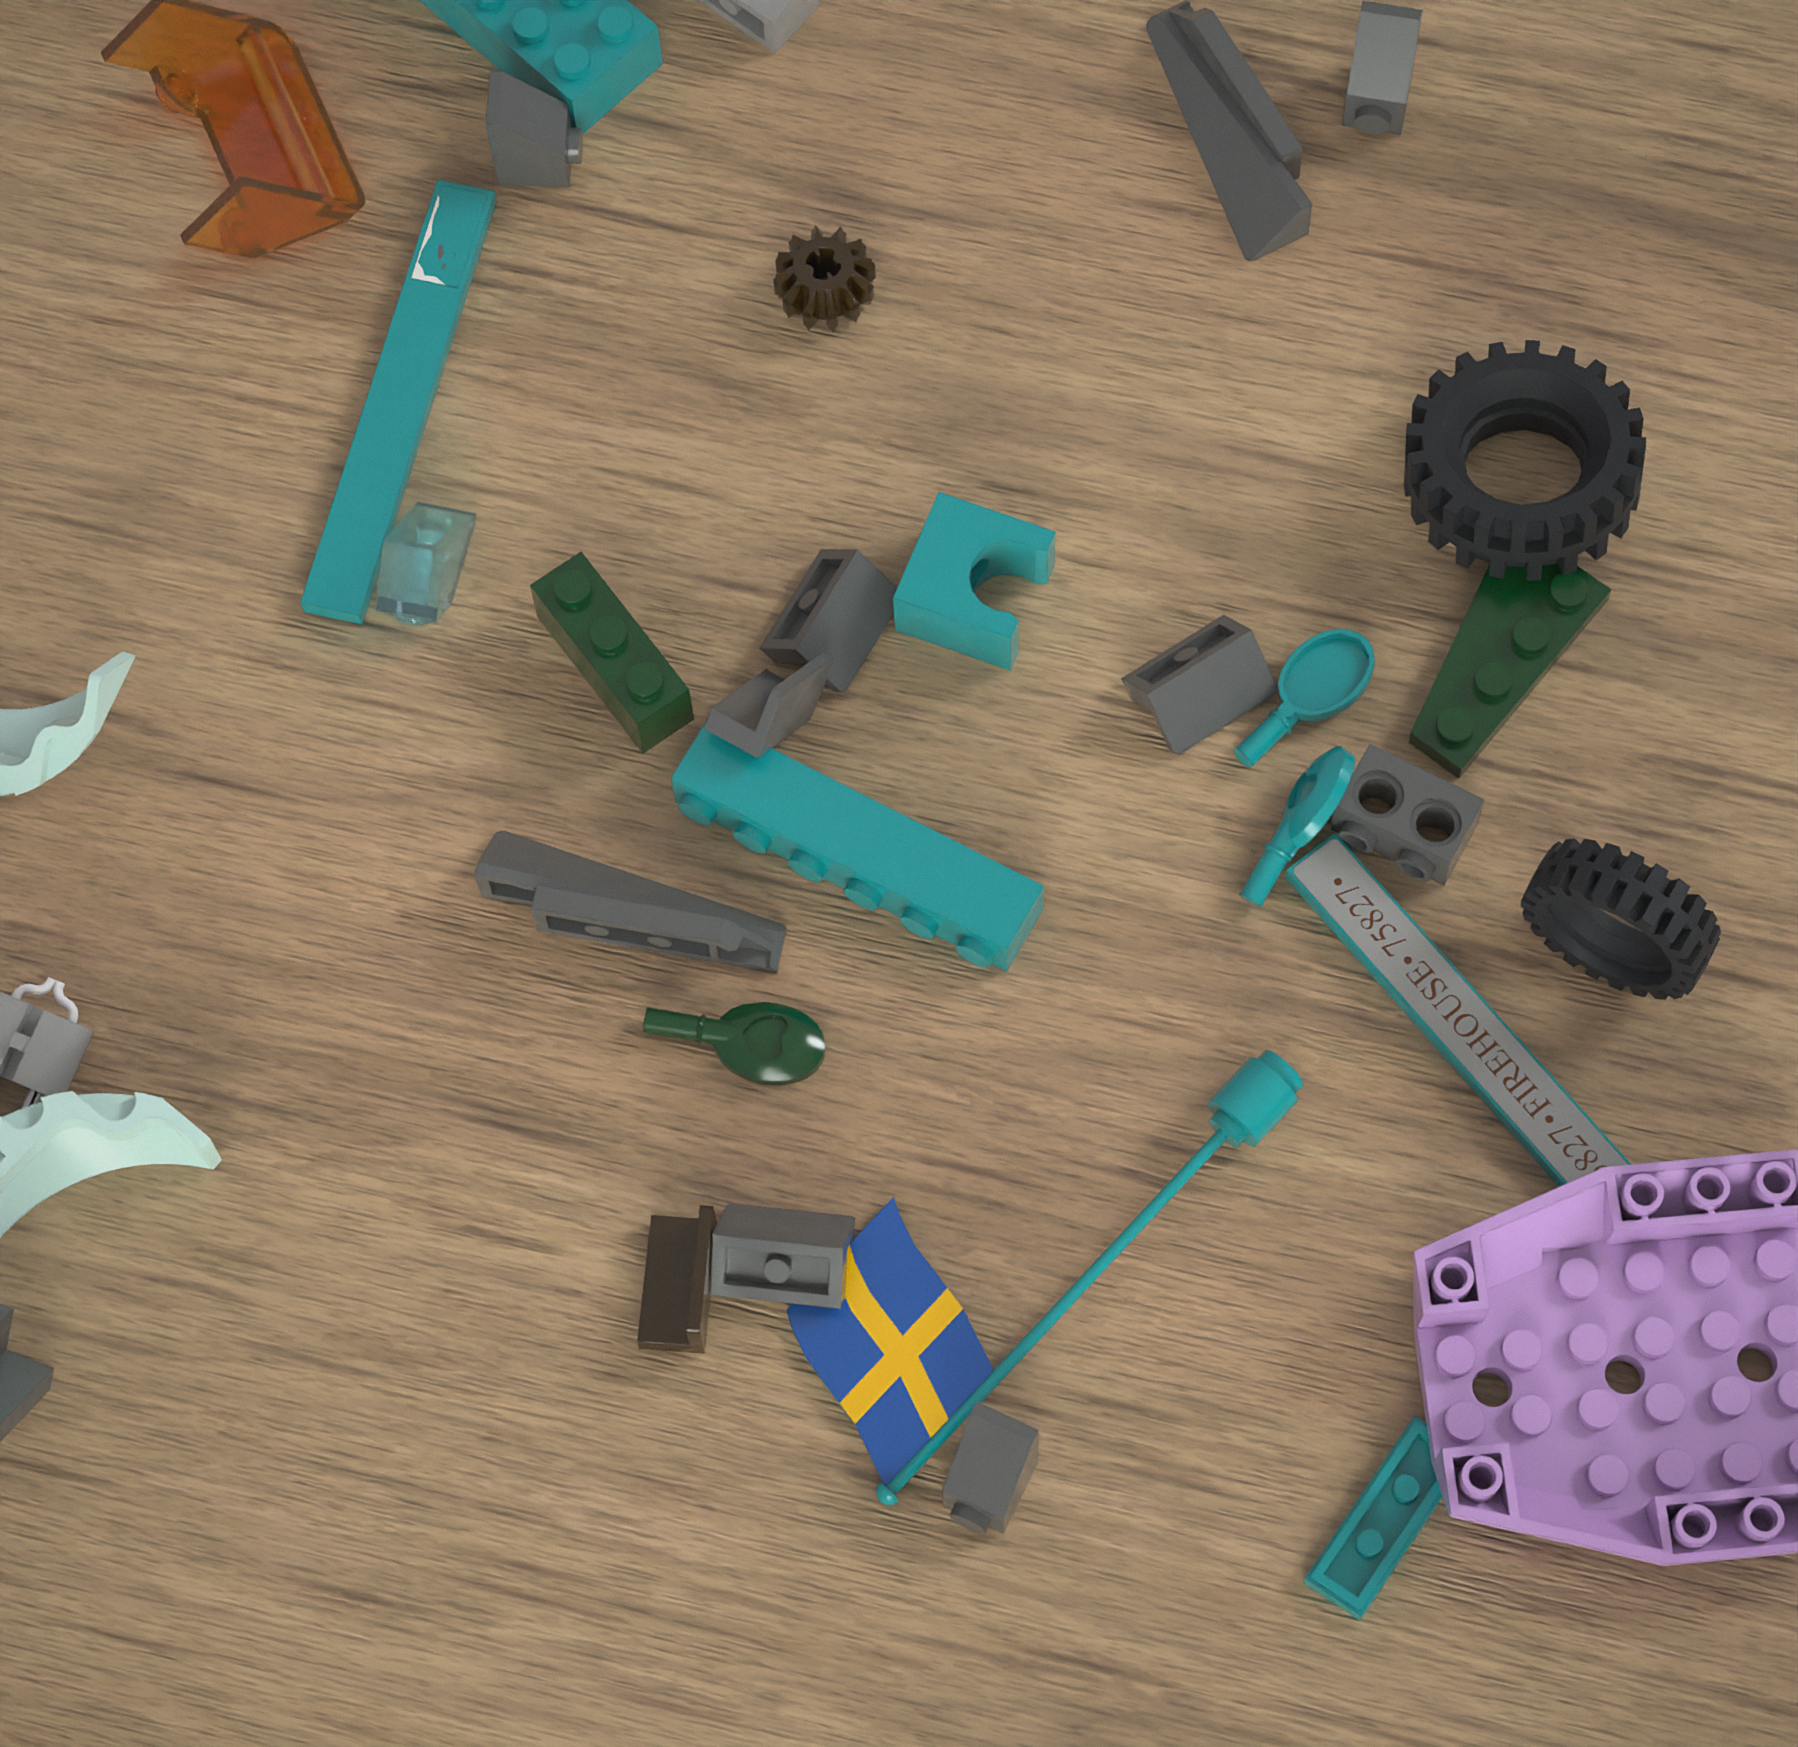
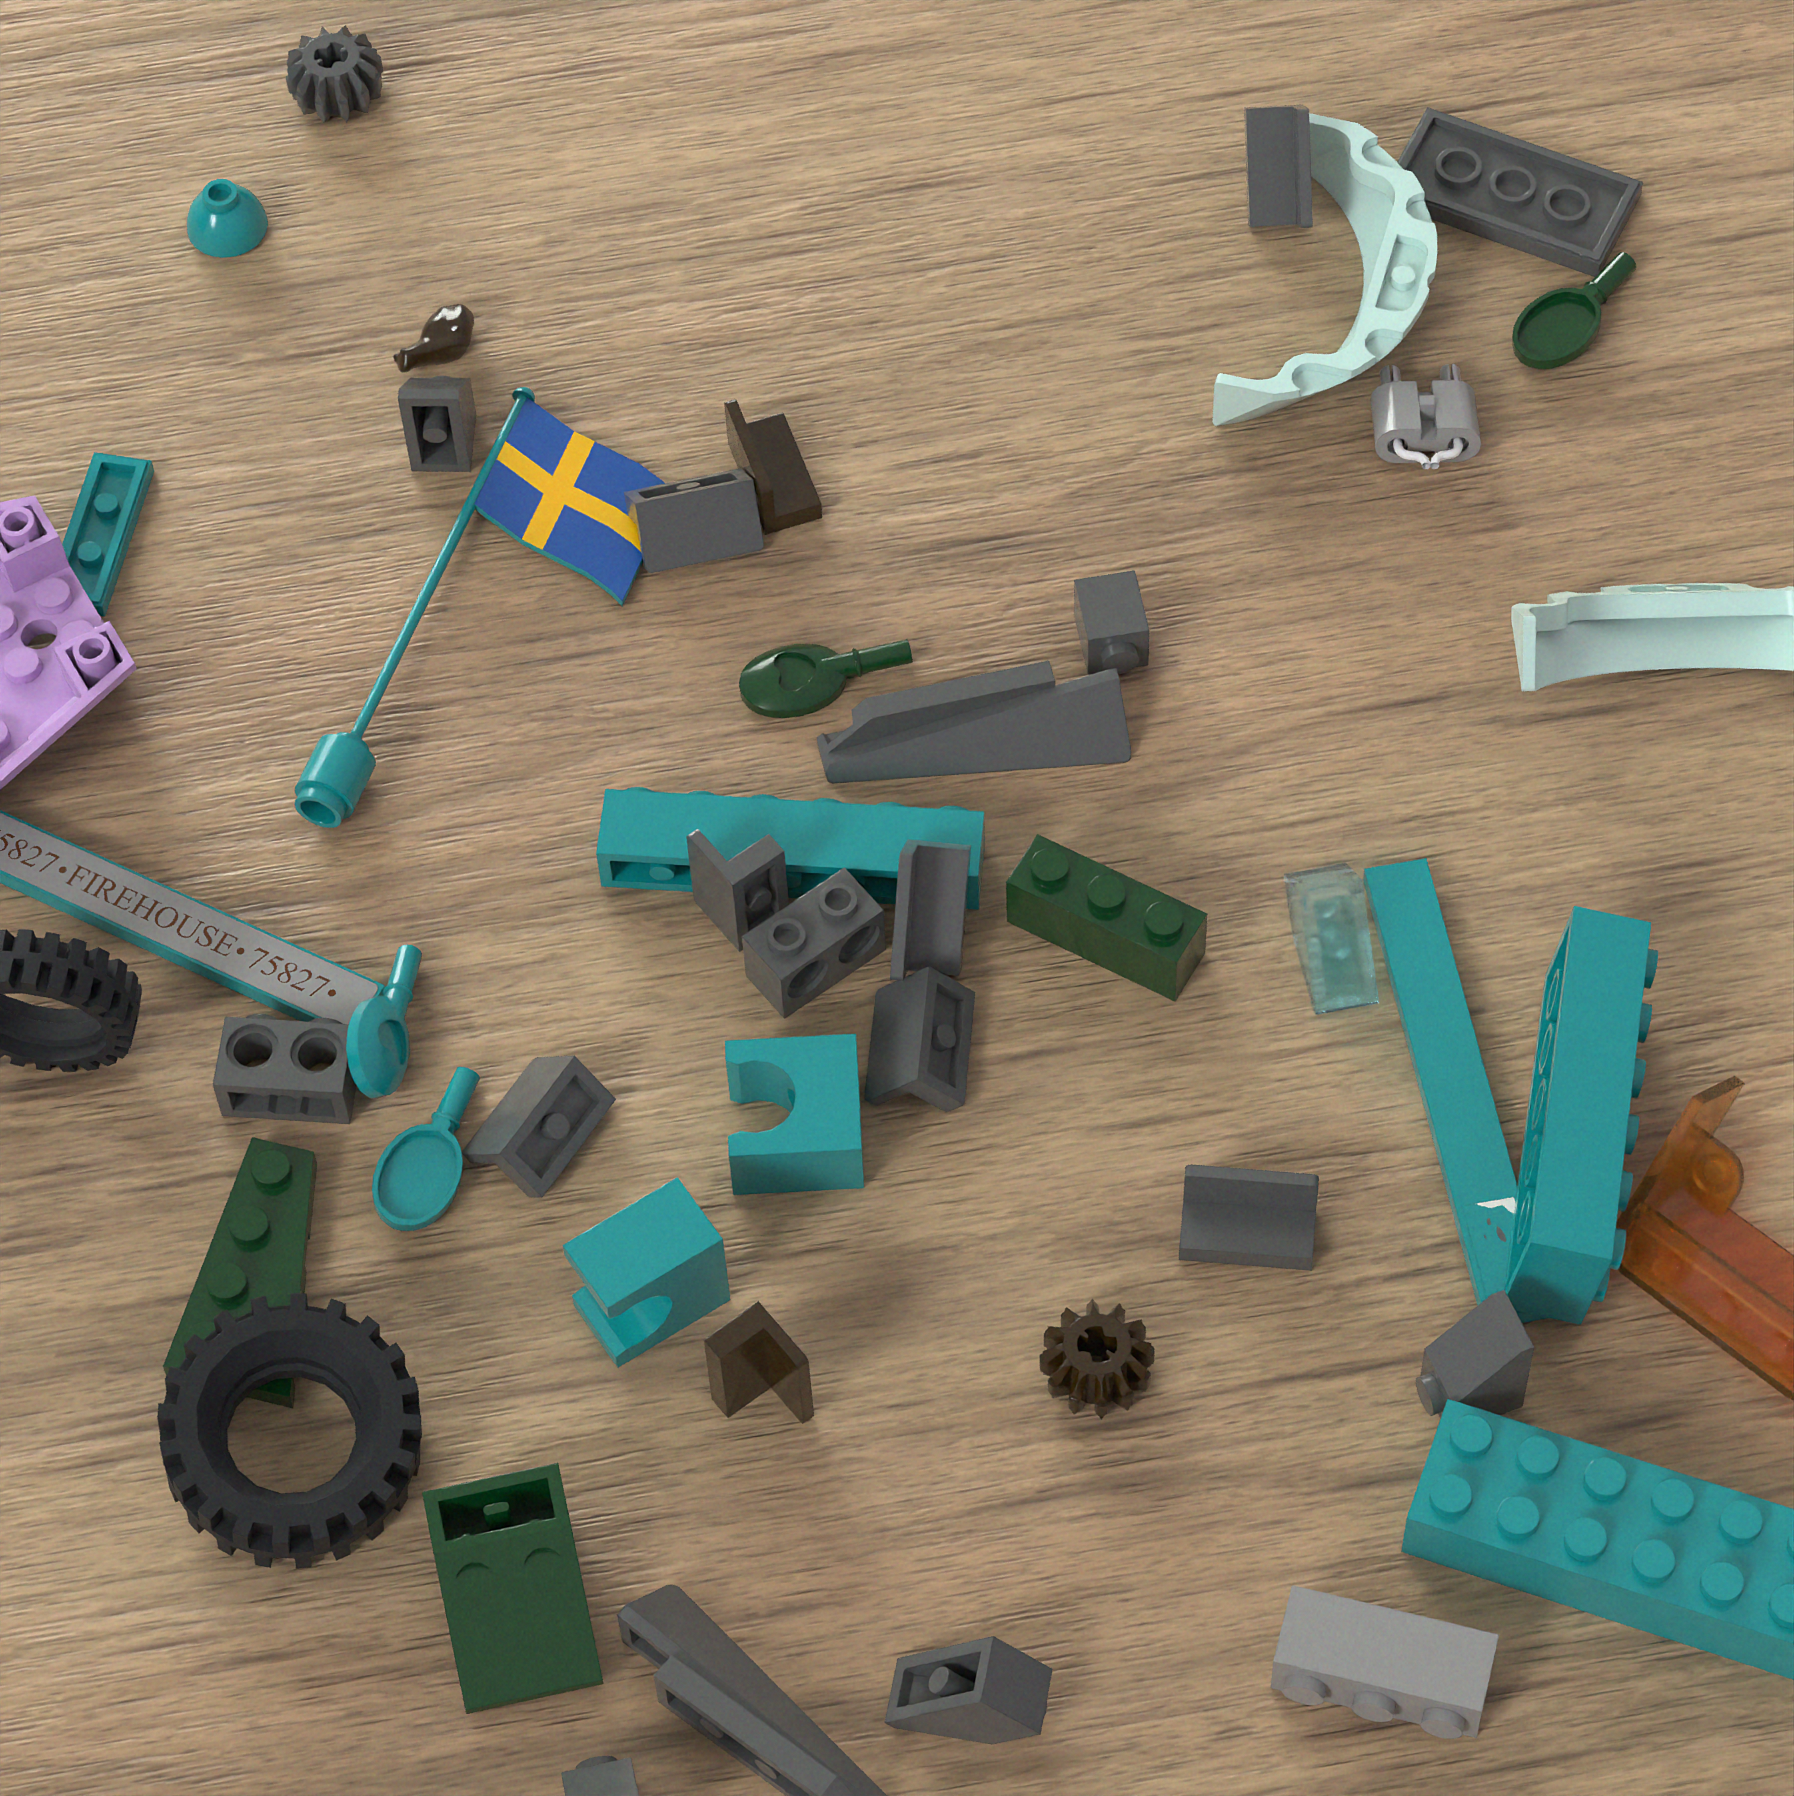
camera: 155 degrees right, 10 degrees down
(325, 281) = (1581, 1117): none -> teal brick
(446, 951) = (1111, 622): none -> dark grey brick
(638, 348) = (1248, 1217): none -> dark grey panel
(883, 734) = (814, 942): none -> dark grey brick
(923, 787) = (740, 890): none -> dark grey panel
(941, 1601) = (442, 339): none -> dark brown animal
(1058, 63) = (970, 1692): none -> dark grey slope
(1112, 360) = (753, 1357): none -> dark brown panel
(1167, 470) = (648, 1272): none -> teal piece
(1383, 284) = (512, 1588): none -> dark green slope

